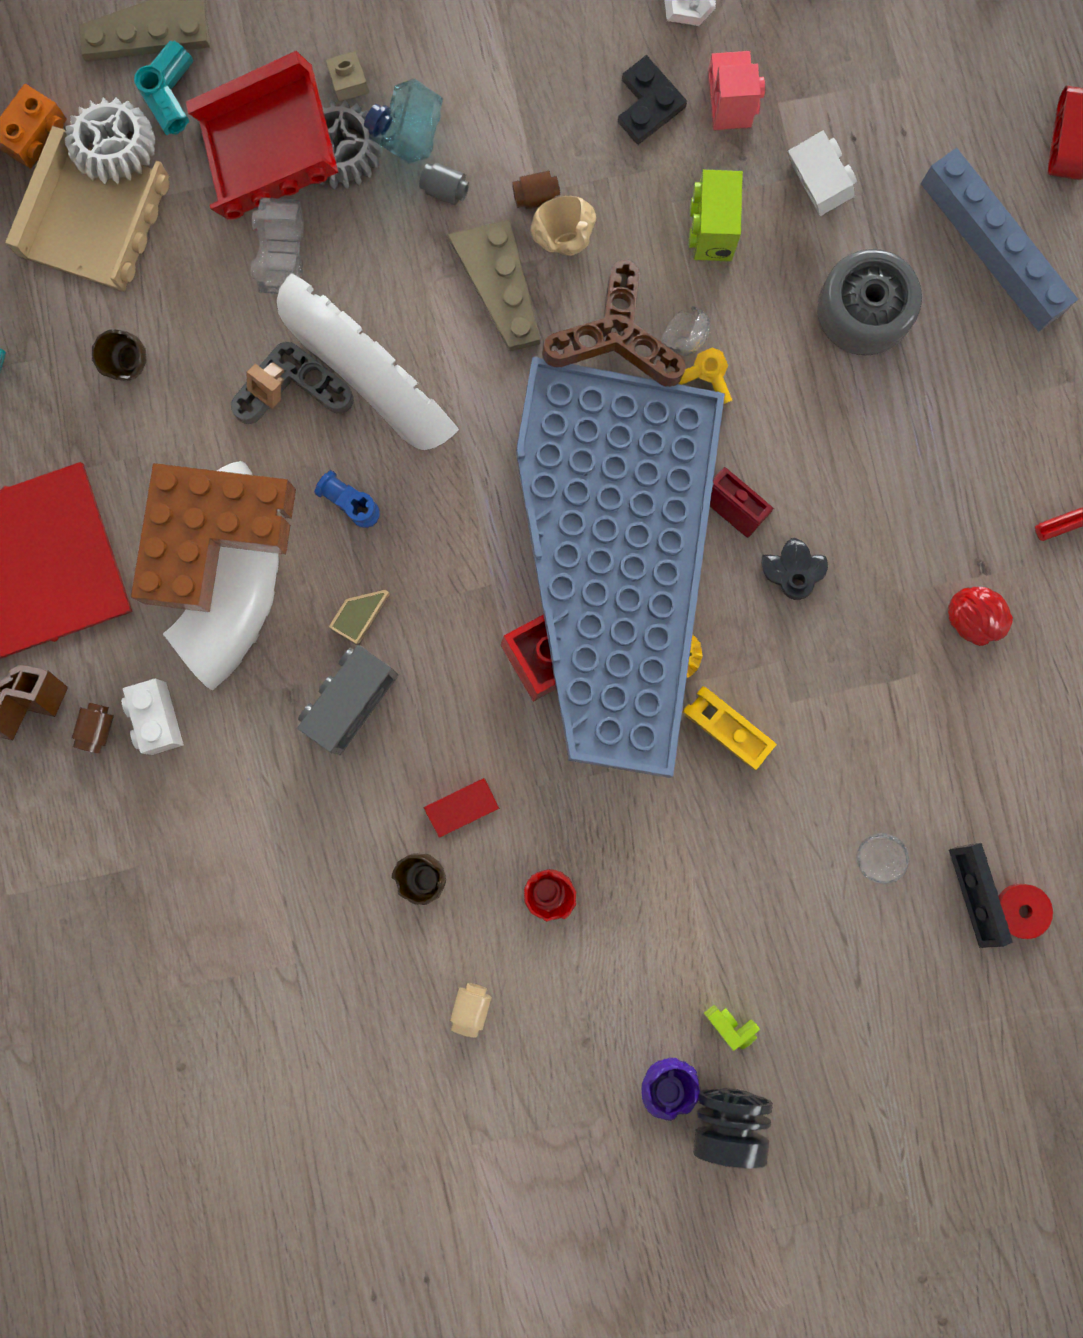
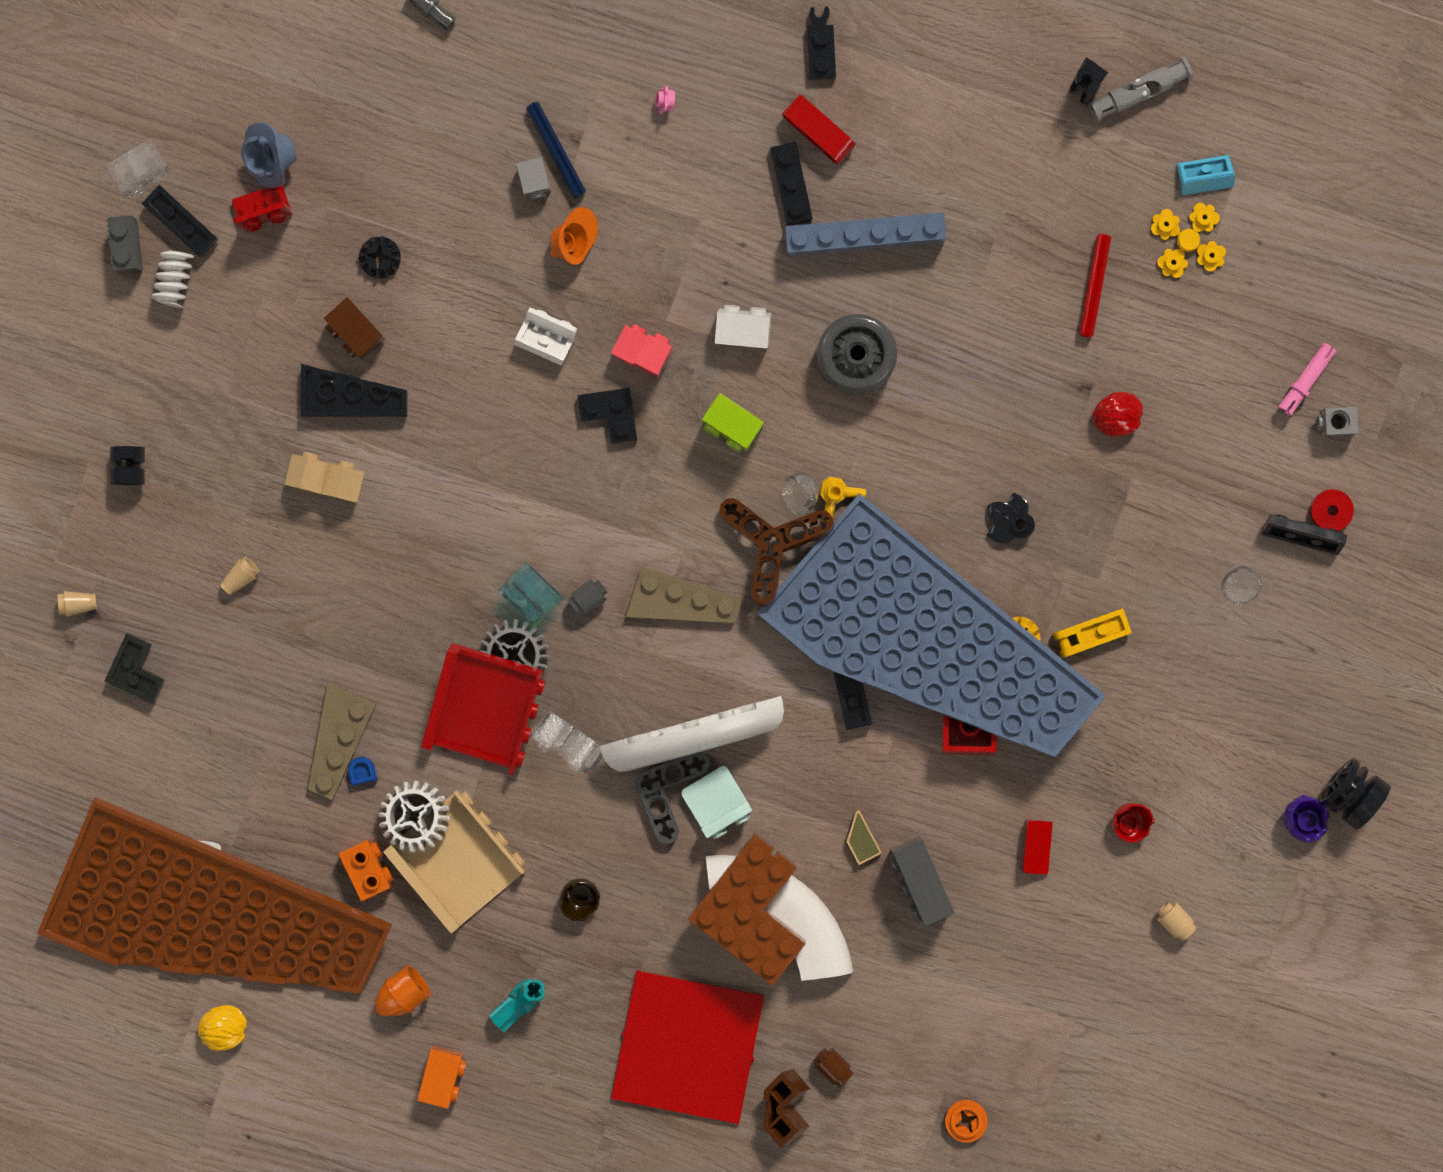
camera: 55 degrees left, 5 degrees up
(100, 910) = (978, 1123): none -> orange gear
(126, 66) = (362, 771): none -> blue tile
(151, 717) = (851, 1021): white brick -> none
(165, 73) = (406, 762): teal piece -> none
(266, 383) = (664, 810): medium nougat tile -> none
(307, 438) = (717, 802): none -> light aqua bracket
(347, 76) = (467, 620): dark tan plate -> none
(348, 499) = (777, 800): blue connector -> none
(378, 120) = (523, 620): dark blue plate -> none
(419, 878) = (1069, 903): dark brown hair -> none
(499, 517) = (852, 702): none -> black plate
(535, 189) = (632, 535): reddish brown brick -> none
(563, 225) = (672, 533): tan hair -> none
(725, 1025) = (1287, 757): lime bracket -> none
(738, 503) = (940, 529): dark red slope -> none
(1003, 137) = (791, 183): none -> black plate

